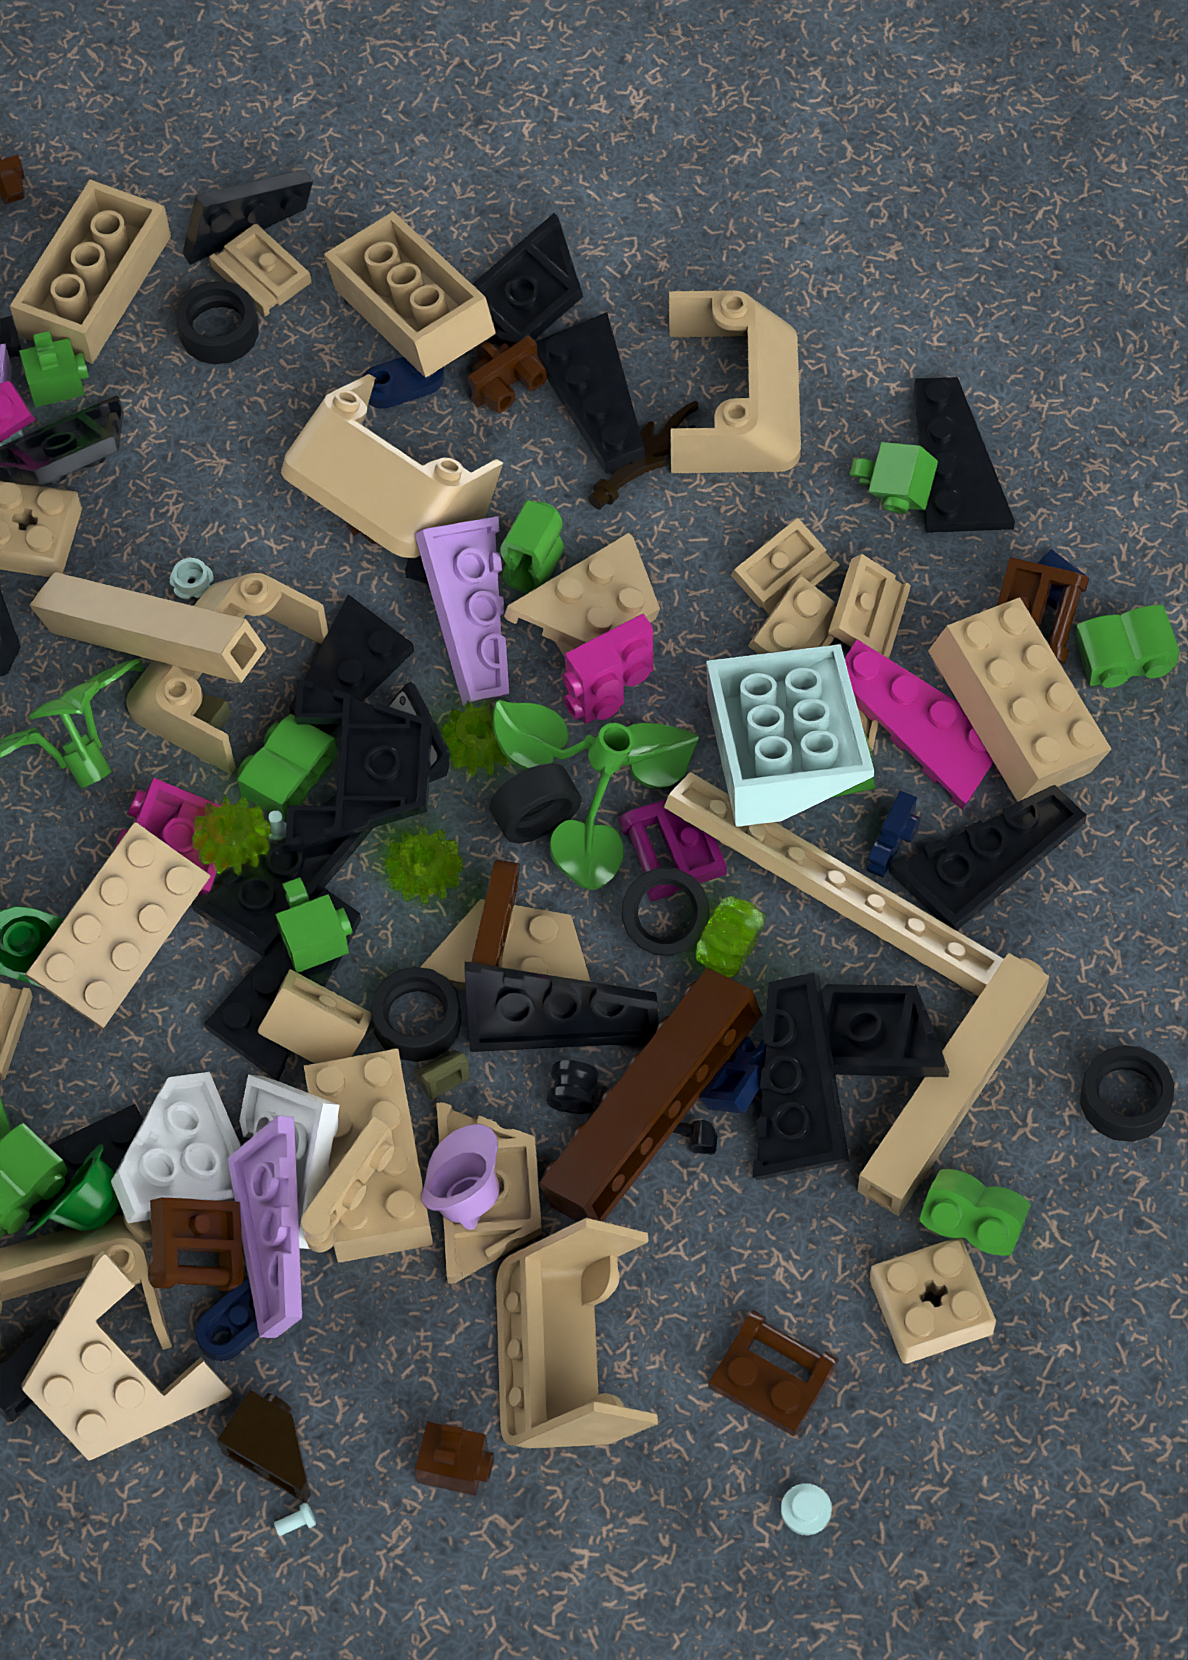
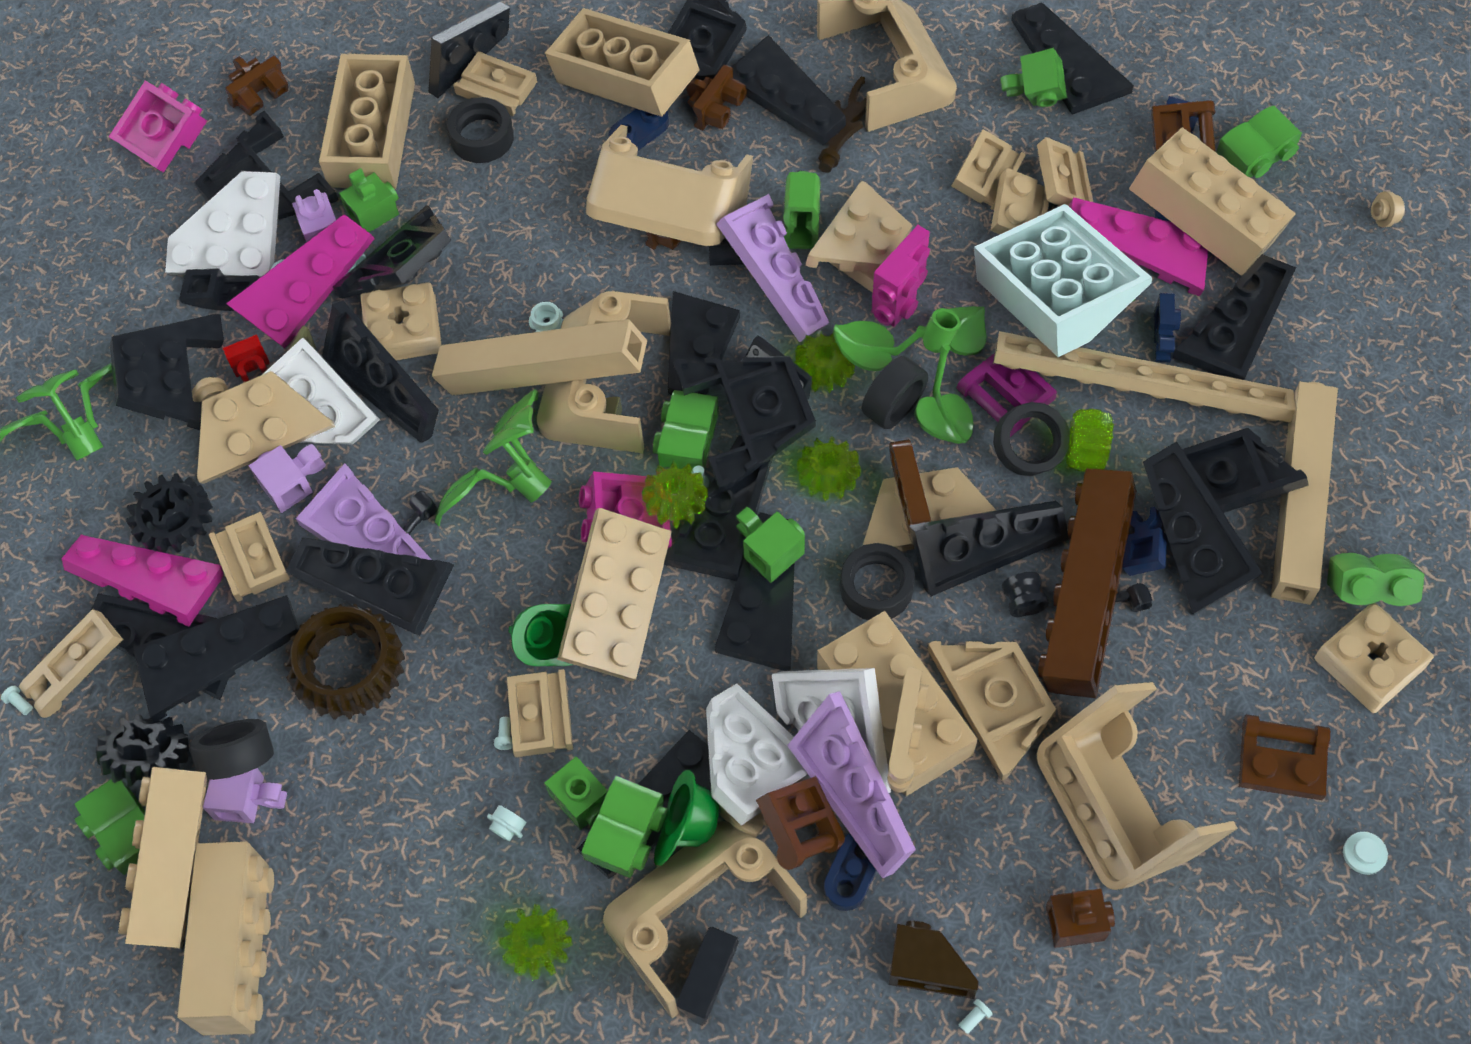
camera: 20 degrees left, 0 degrees up
(96, 1388) = (767, 968): tan wing -> none
(314, 1021) = (804, 615): tan panel -> none
(443, 1073) = (918, 618): olive slope -> none
(463, 1175) = (984, 688): lavender piece -> none
(1125, 1127) = (1421, 477): black tyre -> none

